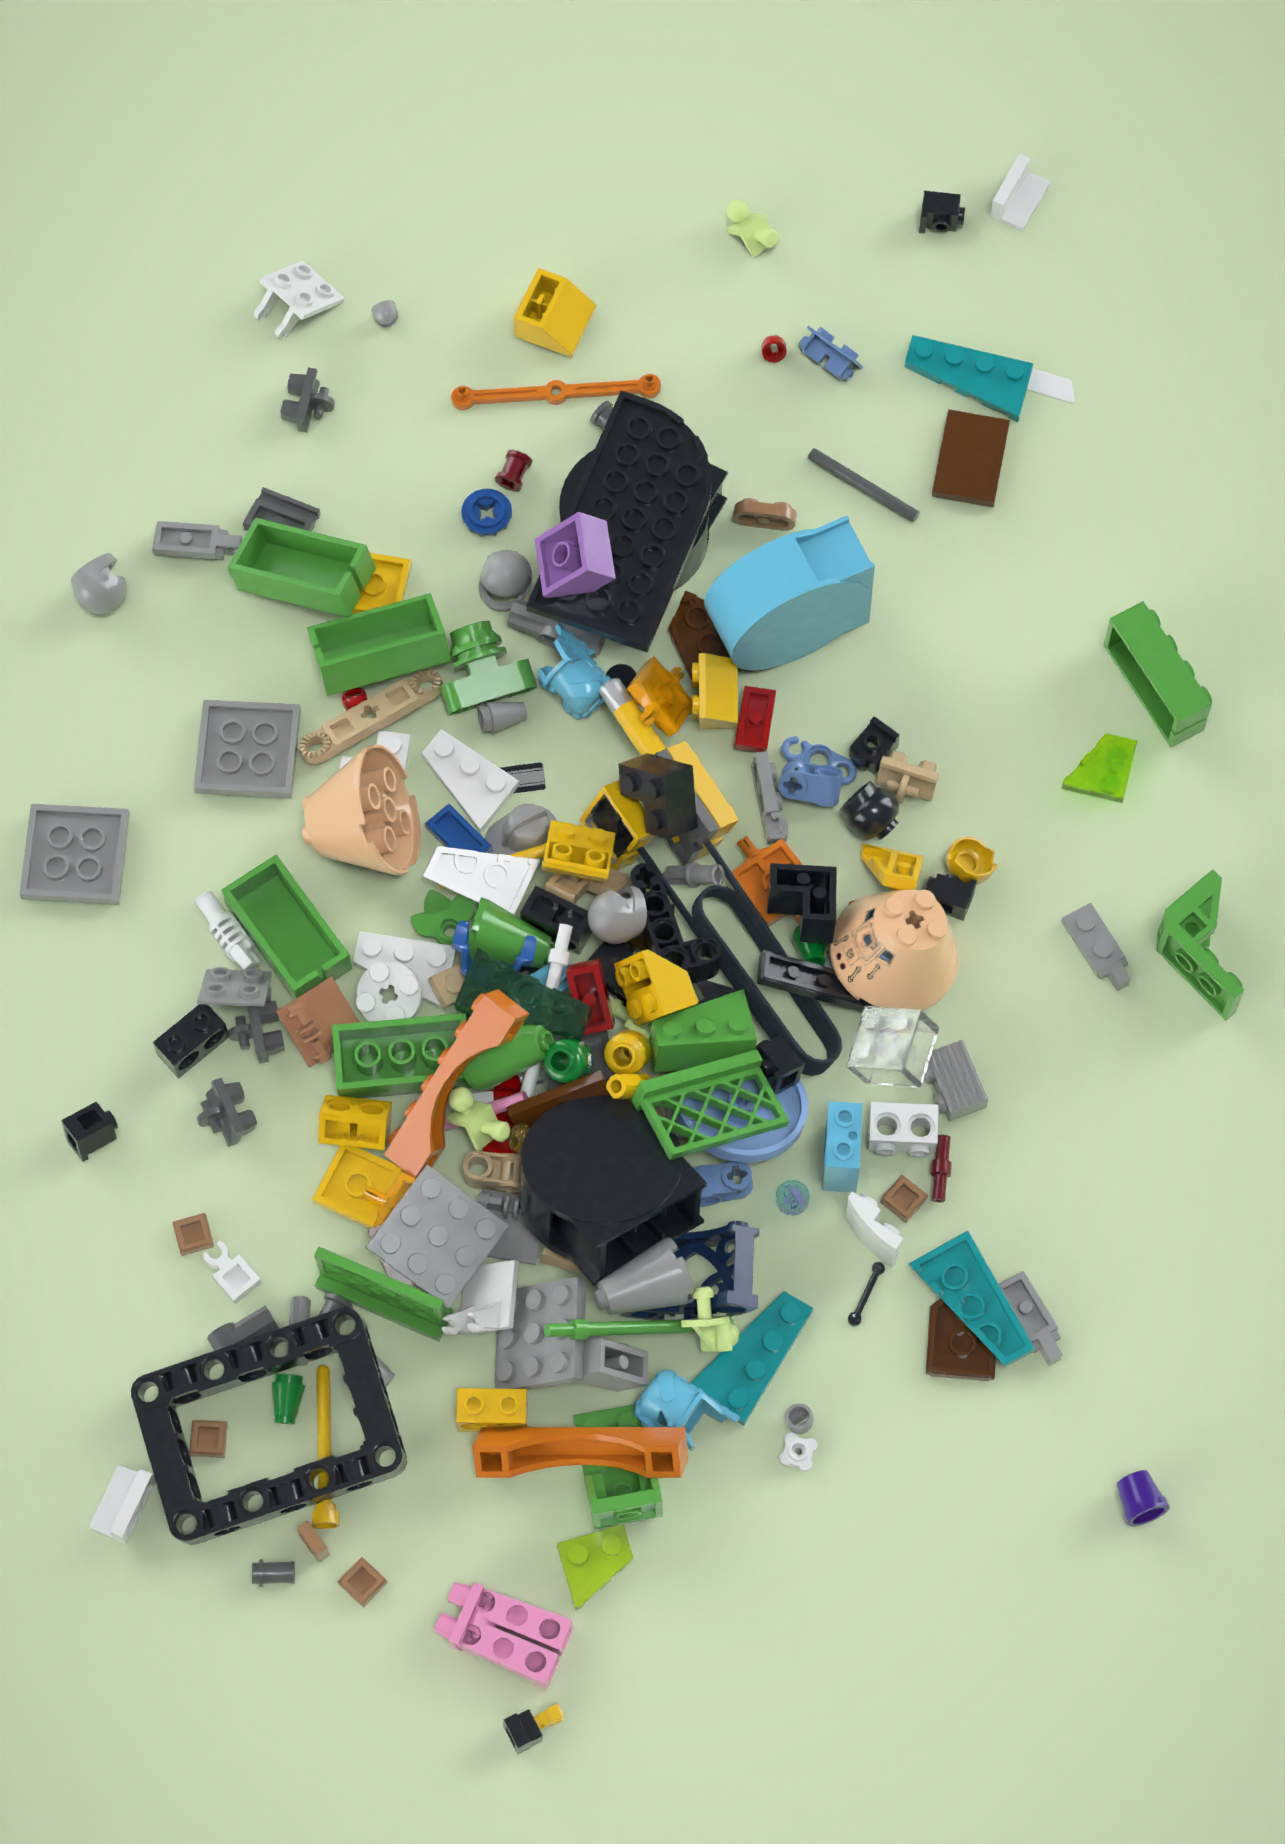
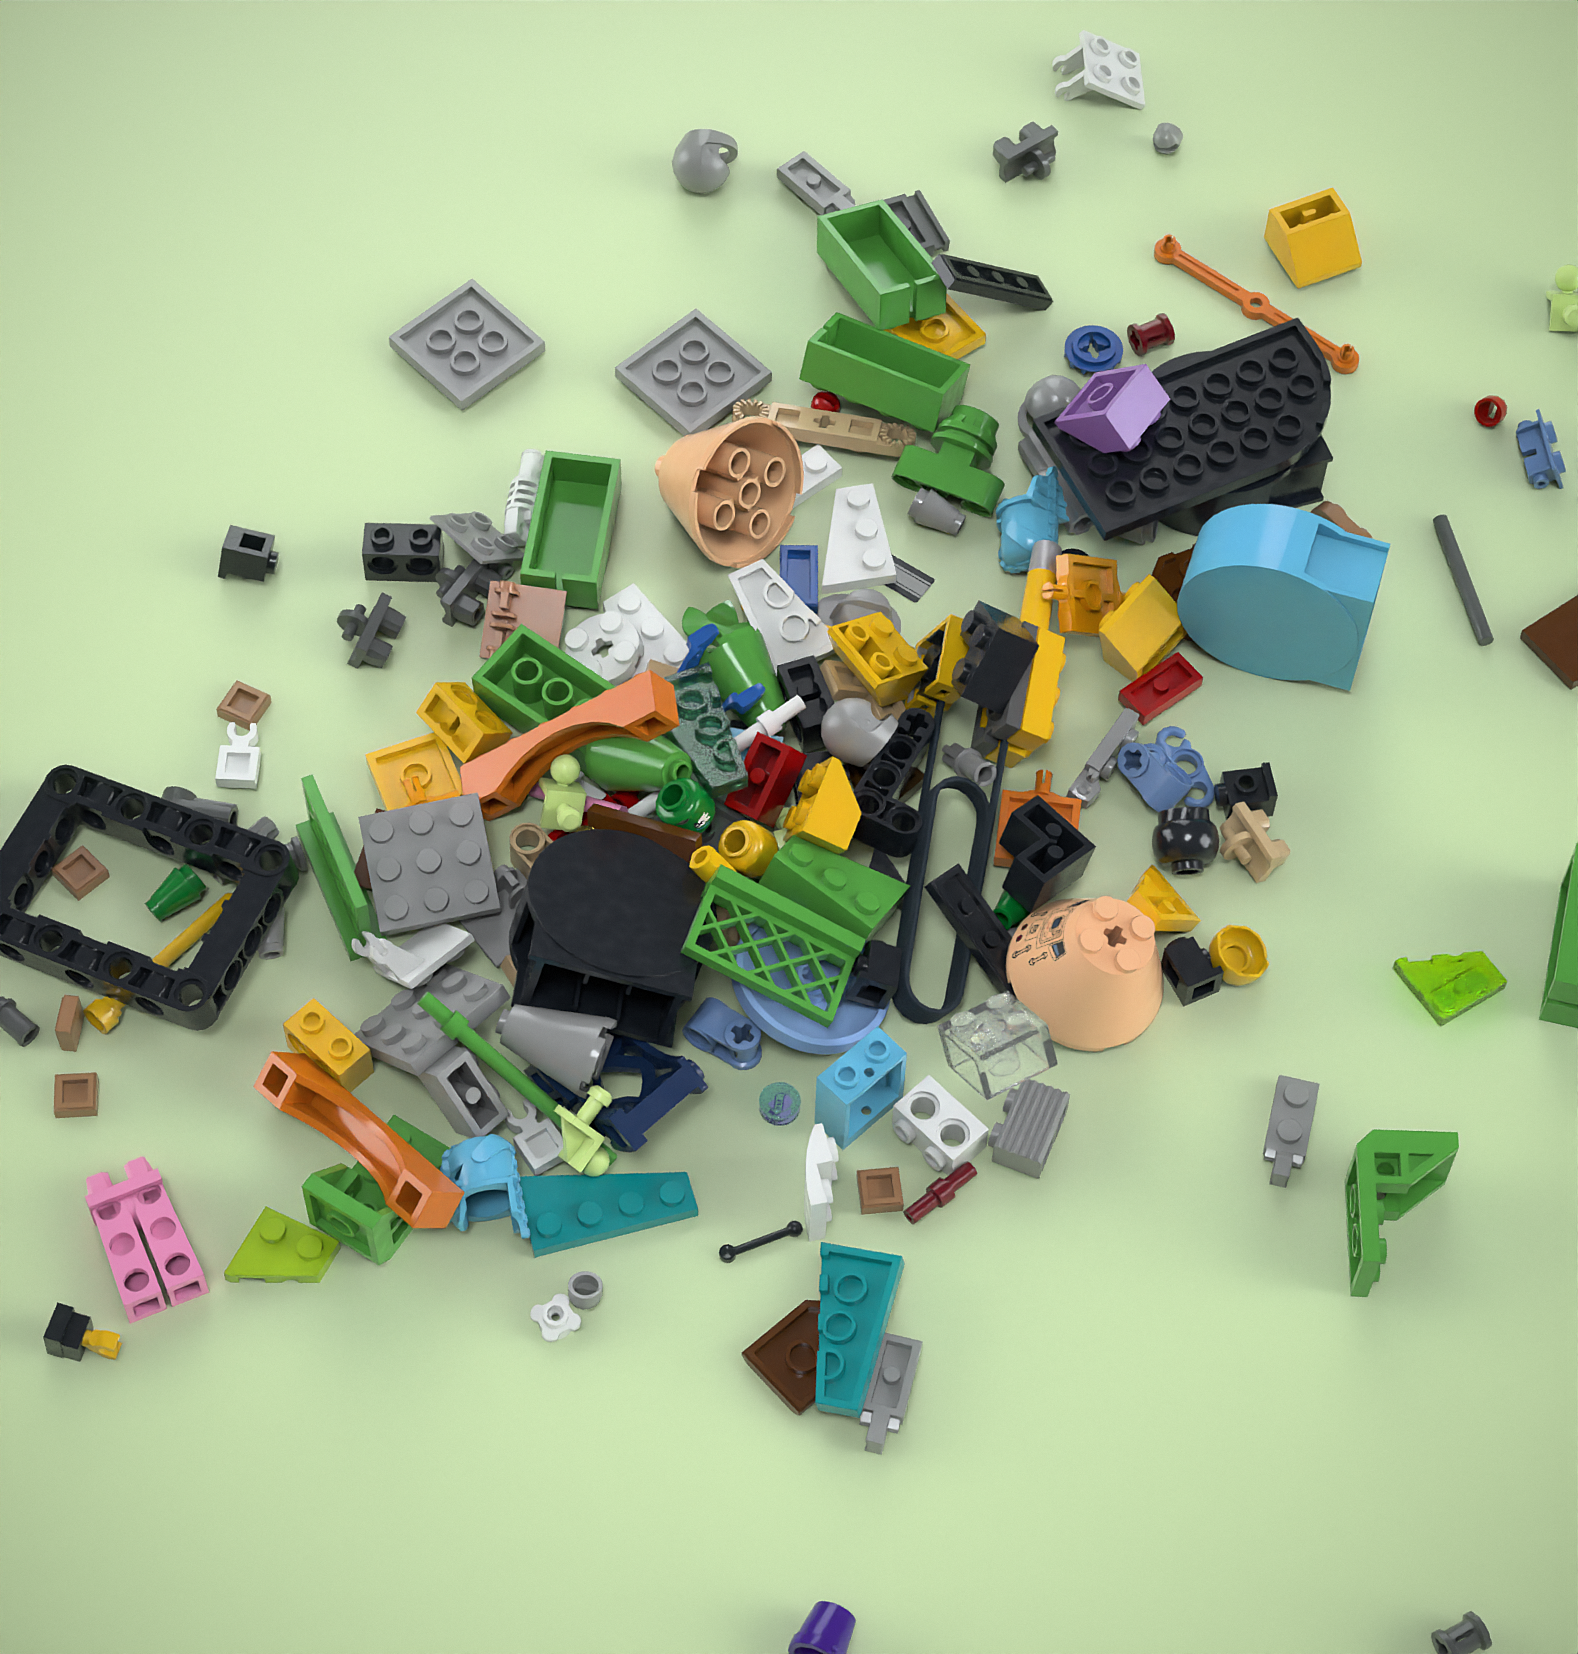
camera: 40 degrees right, 10 degrees down
(388, 520) = (992, 282): none -> black tile
(679, 1353) = (535, 1141): none -> white plate

